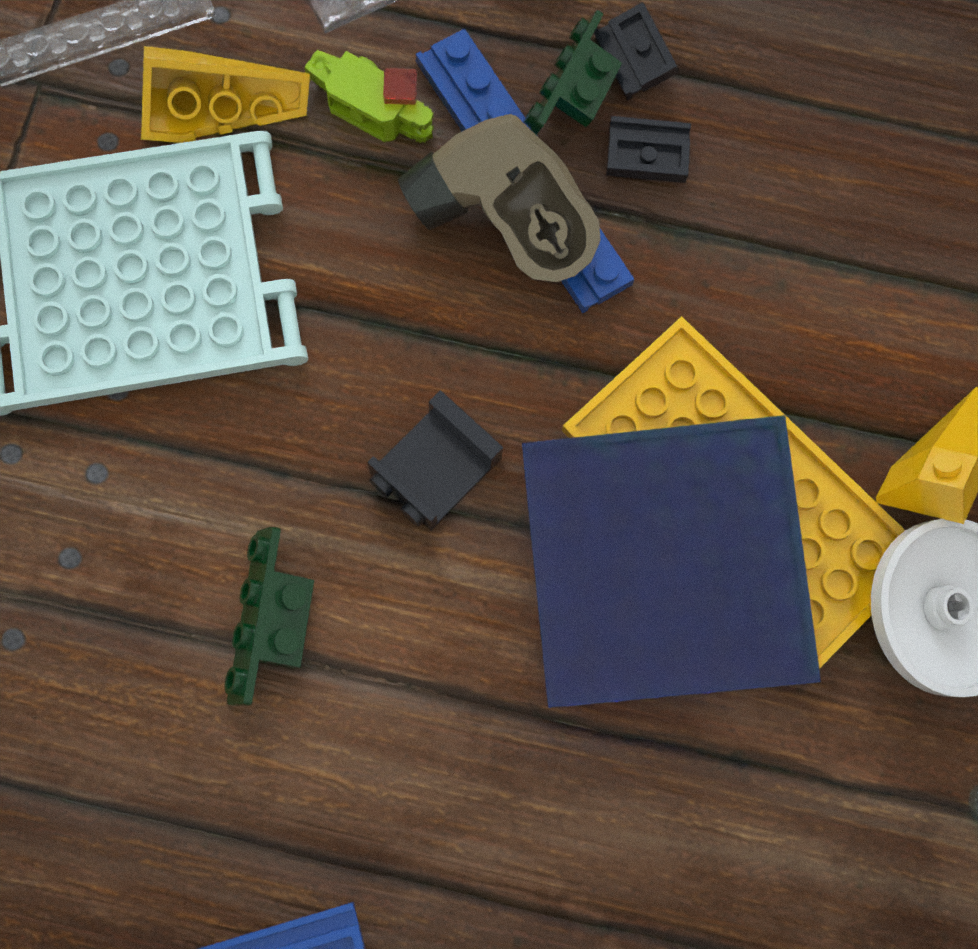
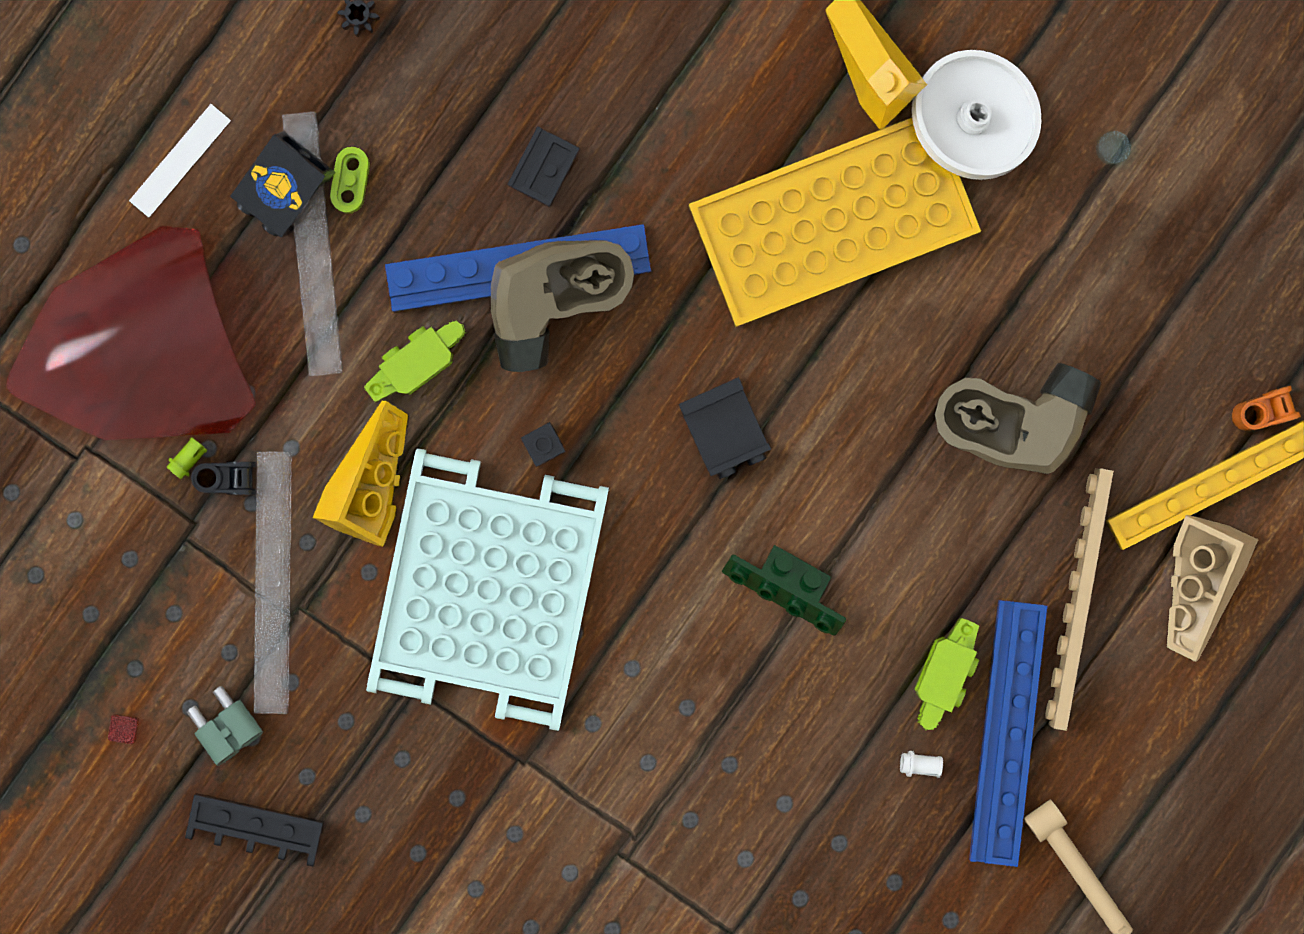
camera: 55 degrees left, 15 degrees up
(92, 889) = (921, 764): none -> white pin
(227, 869) = (945, 673): none -> lime hinge
(329, 262) = (543, 444): none -> black brick
(400, 86) = (427, 337): clear red piece -> none
(581, 80) = (471, 198): dark green bracket -> none
(586, 825) = (1013, 428): none -> dark tan piece
(640, 48) = (457, 139): black plate -> none
(669, 562) = (864, 297): clear blue plate -> none

